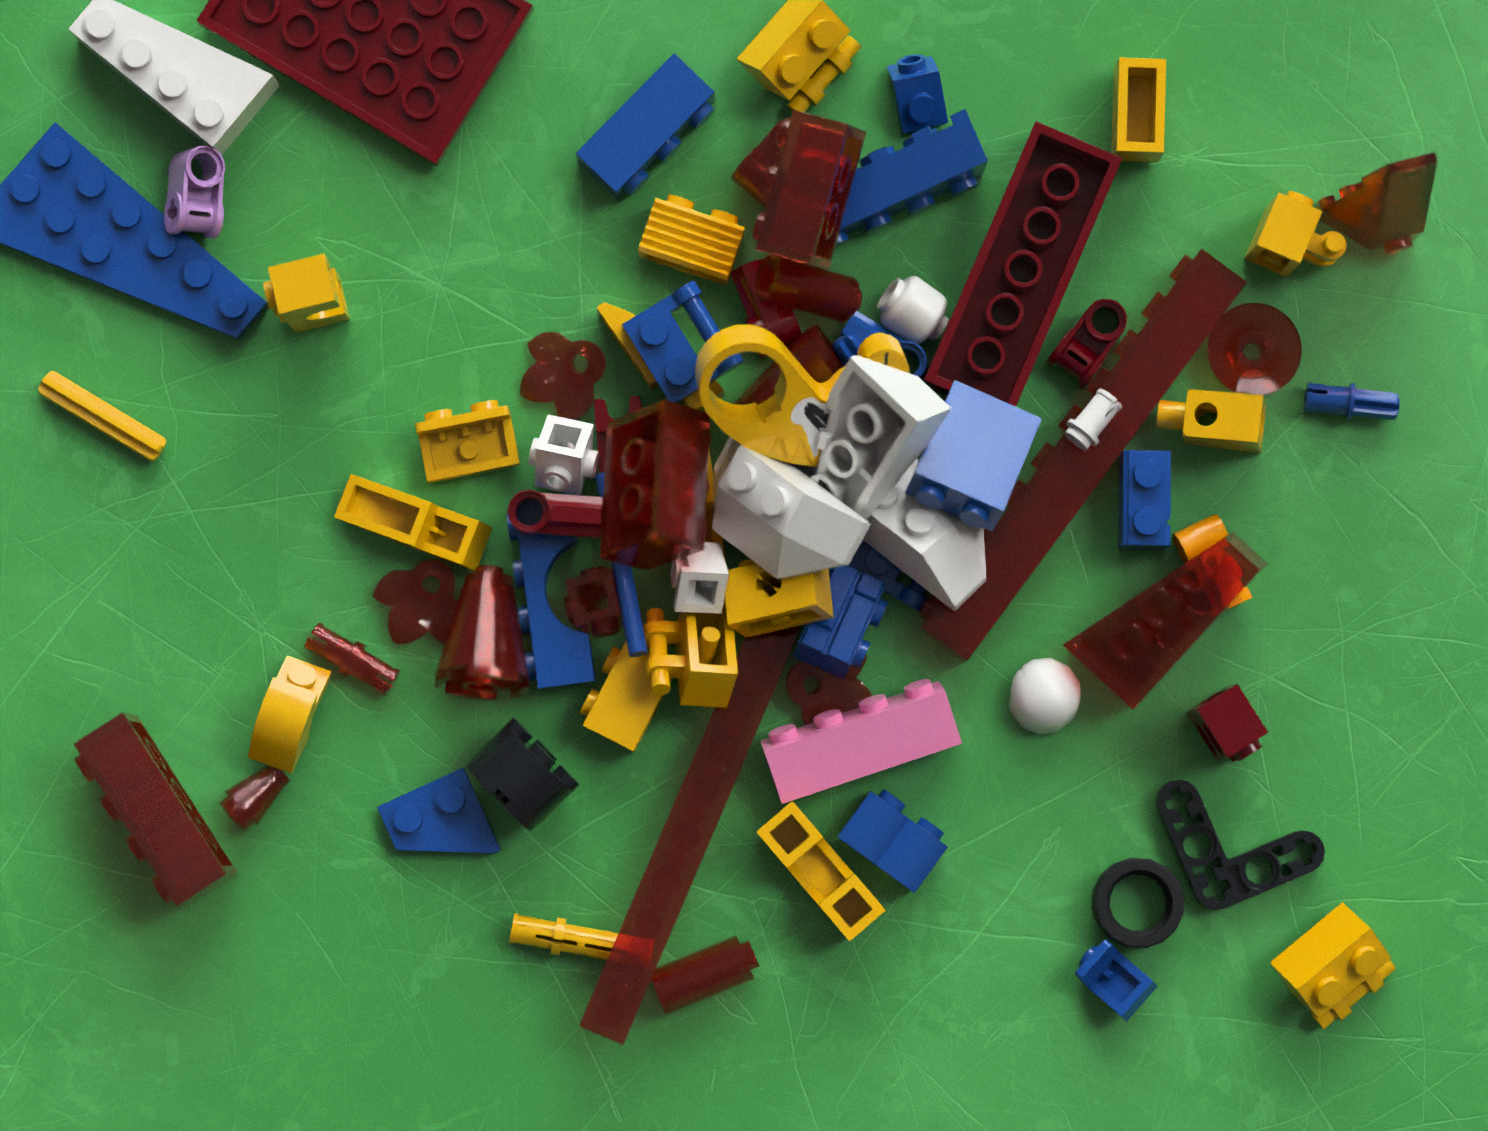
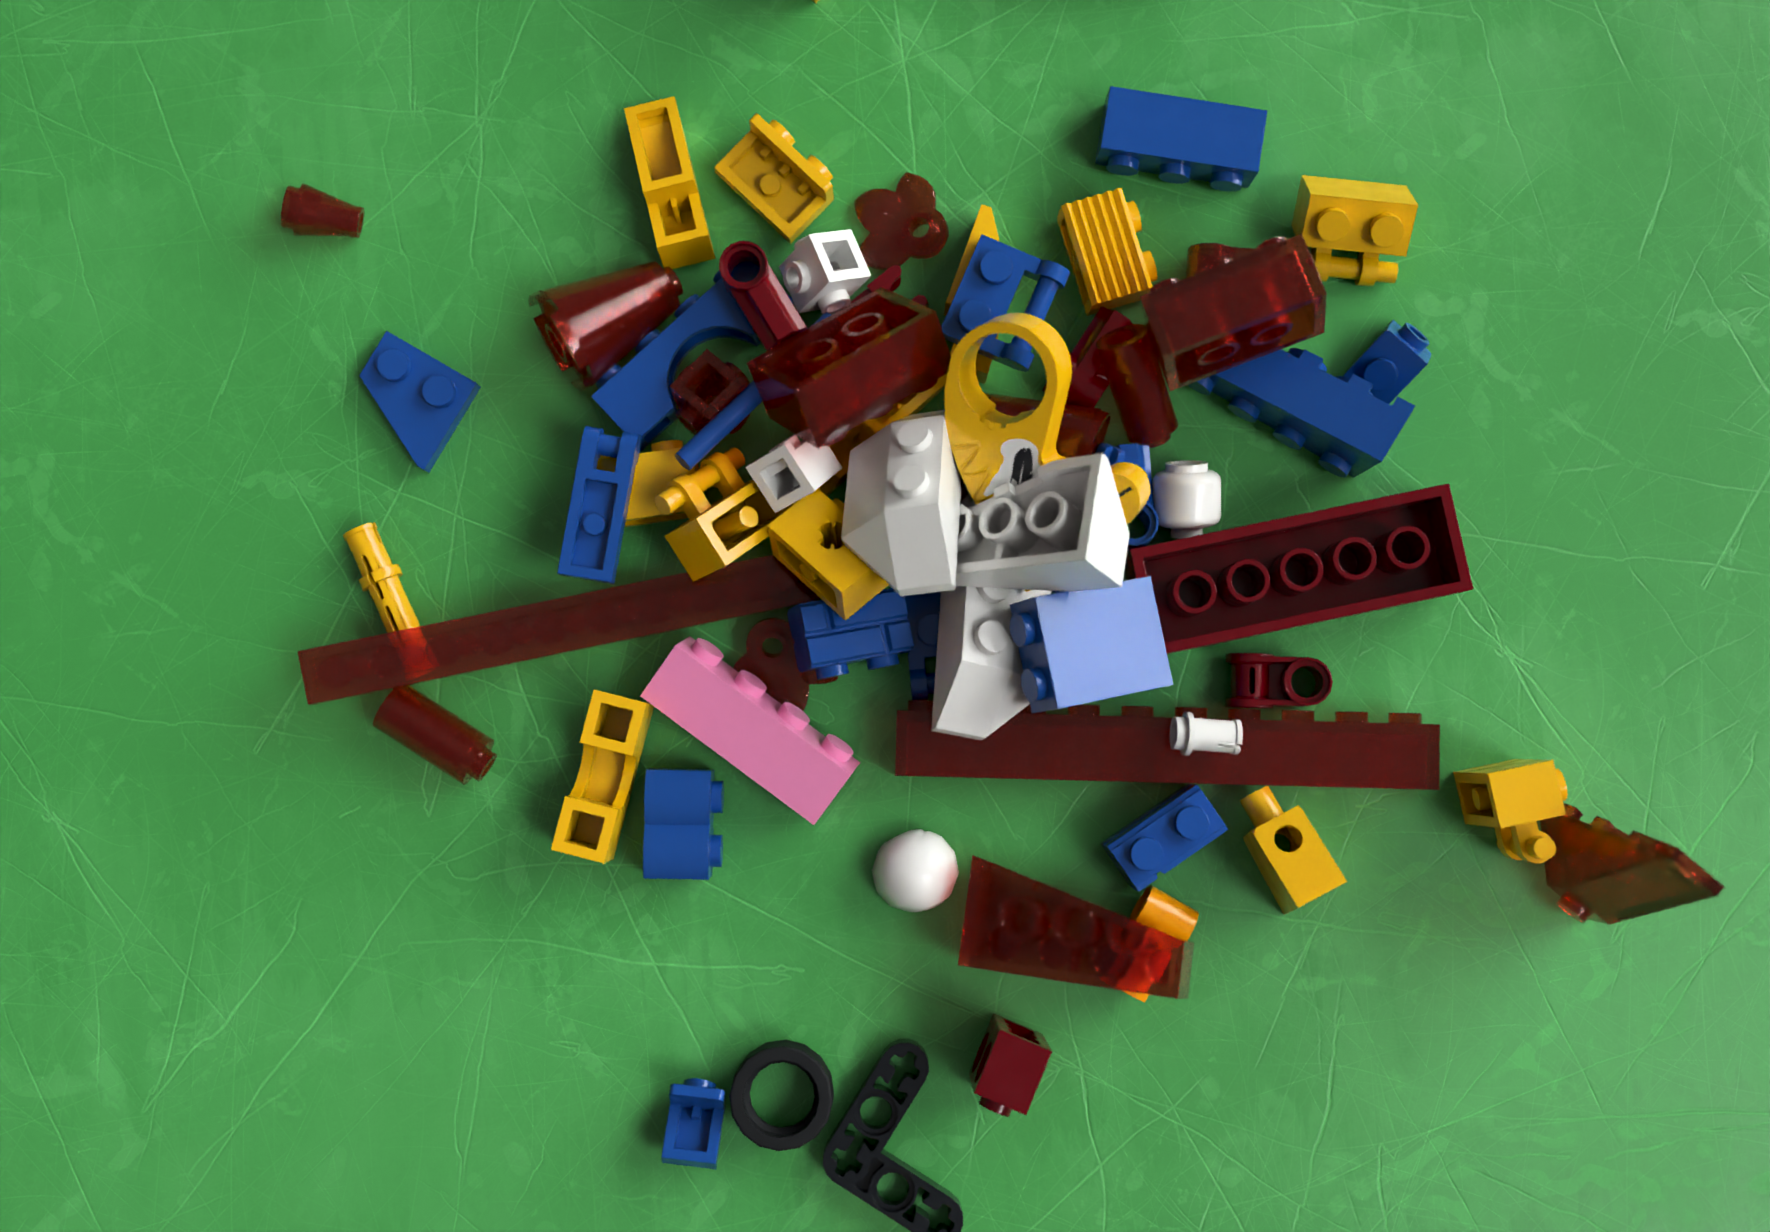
camera: 55 degrees right, 0 degrees up
(155, 809) = (237, 127): clear red brick -> none
(287, 714) = (410, 184): yellow brick -> none
(352, 659) = (506, 215): clear red pin -> none
(415, 608) = (593, 235): clear red plate -> none
(522, 774) = (499, 437): black brick -> none
(626, 737) = (598, 506): none -> blue plate
(1139, 109) = (1527, 574): yellow brick -> none
(1266, 329) = (1403, 847): clear red dish -> none
(1351, 401) = (1394, 966): blue axle -> none

